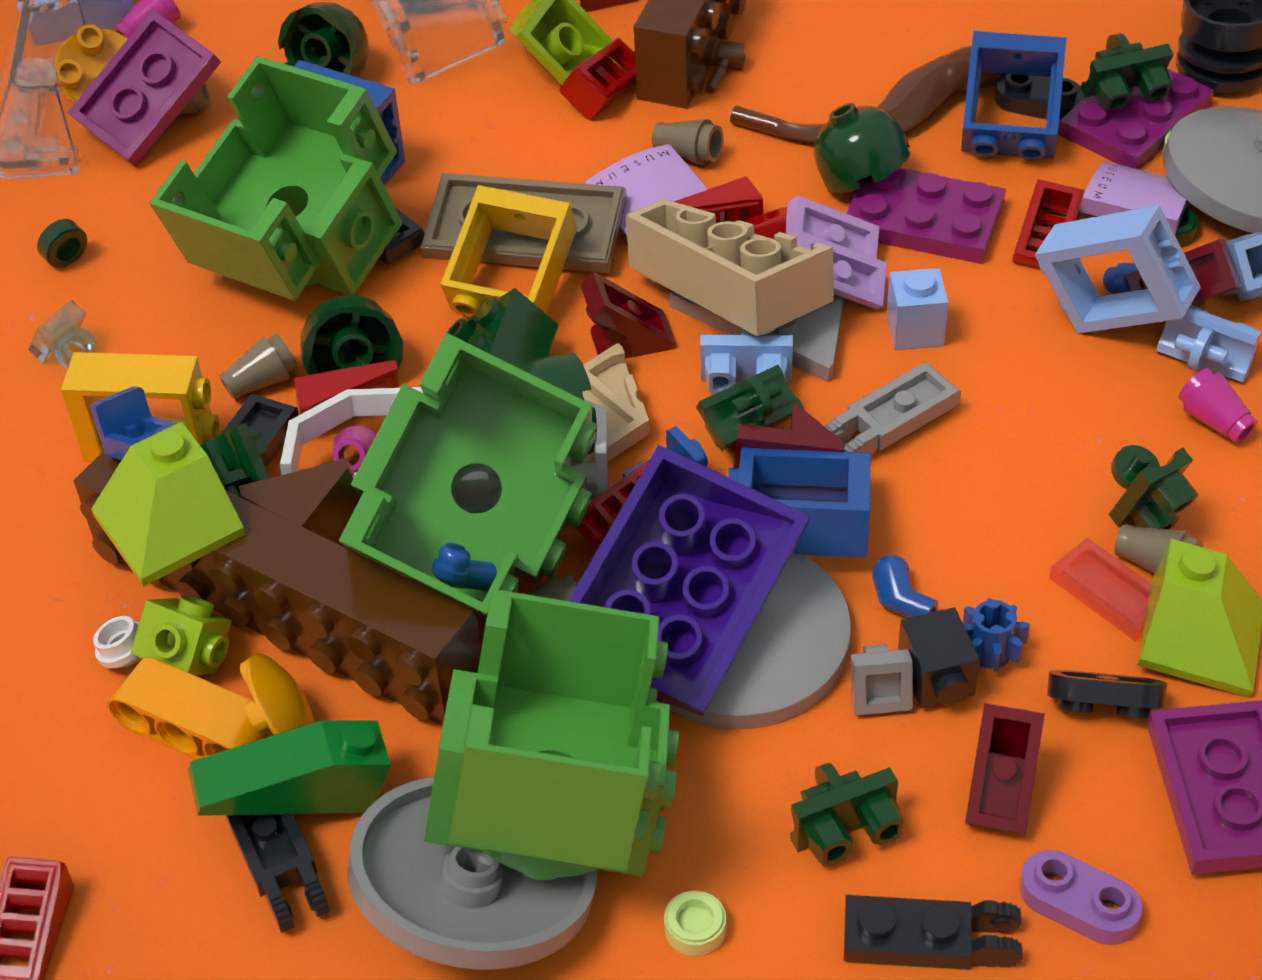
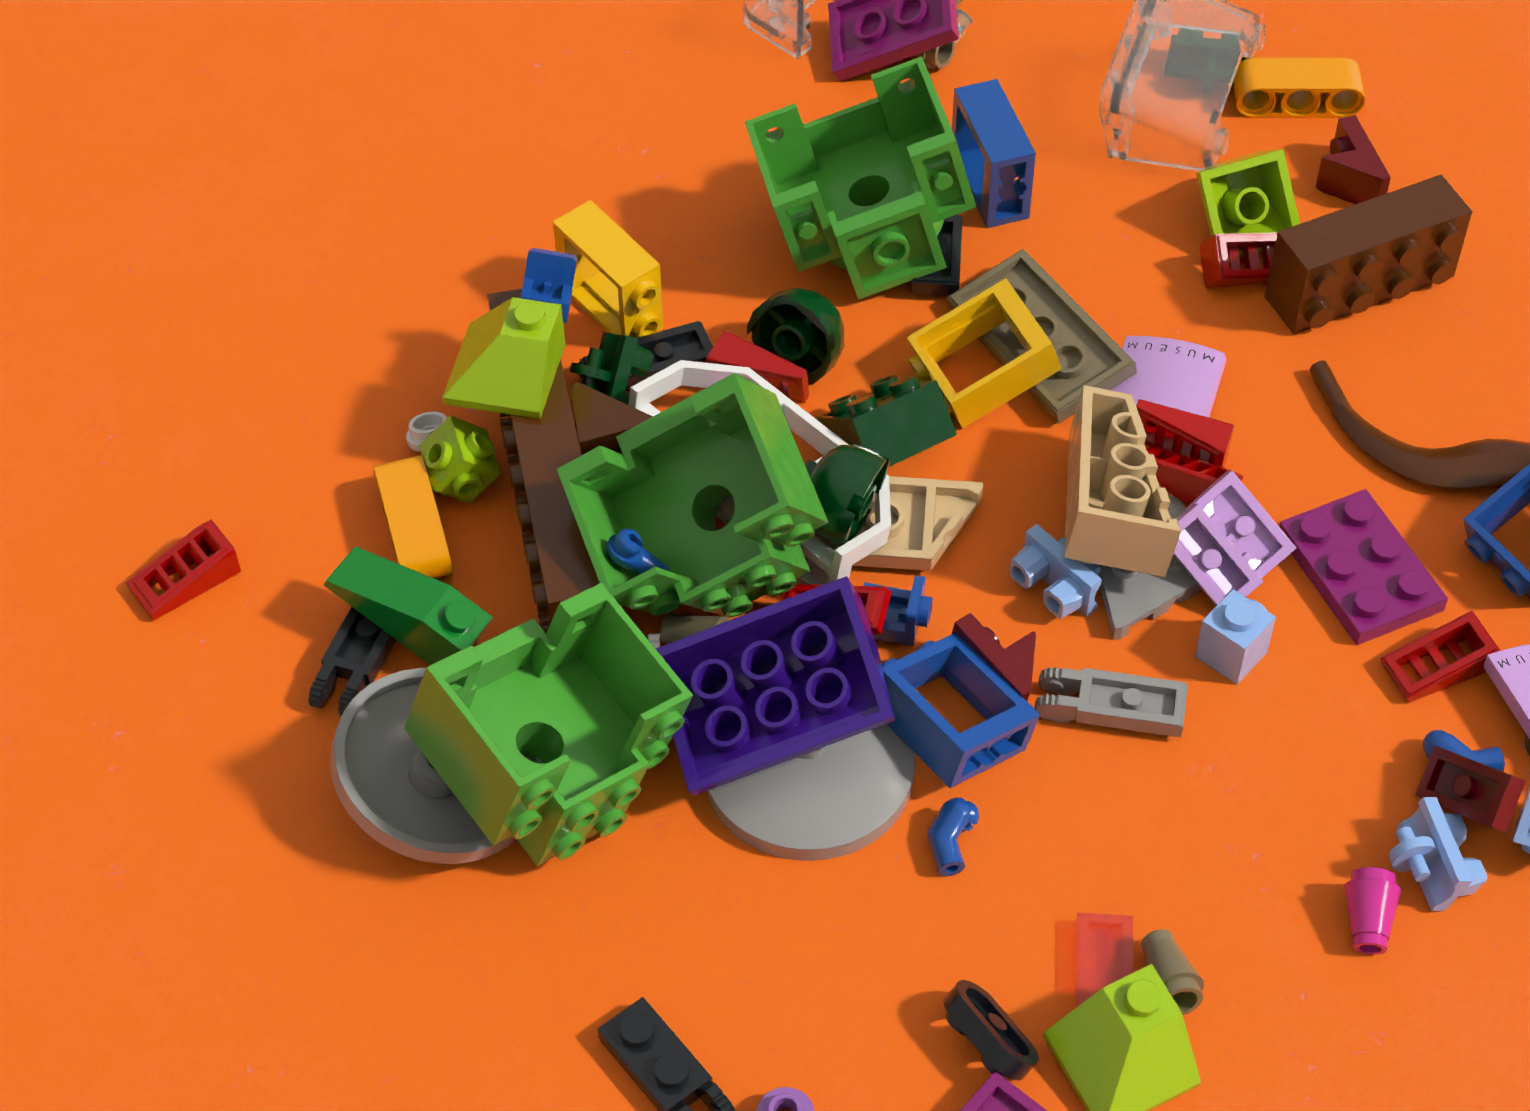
camera: 45 degrees right, 5 degrees up
(59, 332) = (635, 176): clear light blue tile -> none
(62, 243) = (715, 107): tile -> none
(260, 367) = (728, 304): dark tan cone -> none
(276, 697) = (458, 551): light orange dish -> none
(325, 37) = (1064, 78): dark green cylinder -> none
(624, 319) = (1013, 469): dark red slope -> none
(692, 140) = (1250, 365): dark tan cone -> none
(695, 923) = (539, 926): yellowish green tile -> none
(729, 56) = (1375, 312): reddish brown hand -> none
(753, 401) = (1009, 607): dark green hips -> none
(844, 805) = (711, 938): dark green hips -> none
(858, 145) = (1357, 469): dark green cylinder -> none
(881, 680) = (846, 880): light grey tile -> none
(941, 657) = (898, 900): black brick -> none
(995, 633) = (961, 934): blue gear -> none
(1005, 768) = (839, 1011): dark red slope -> none
(1152, 491) = (1211, 916): dark green hips -> none
(1154, 252) = (1396, 726): light blue window -> none

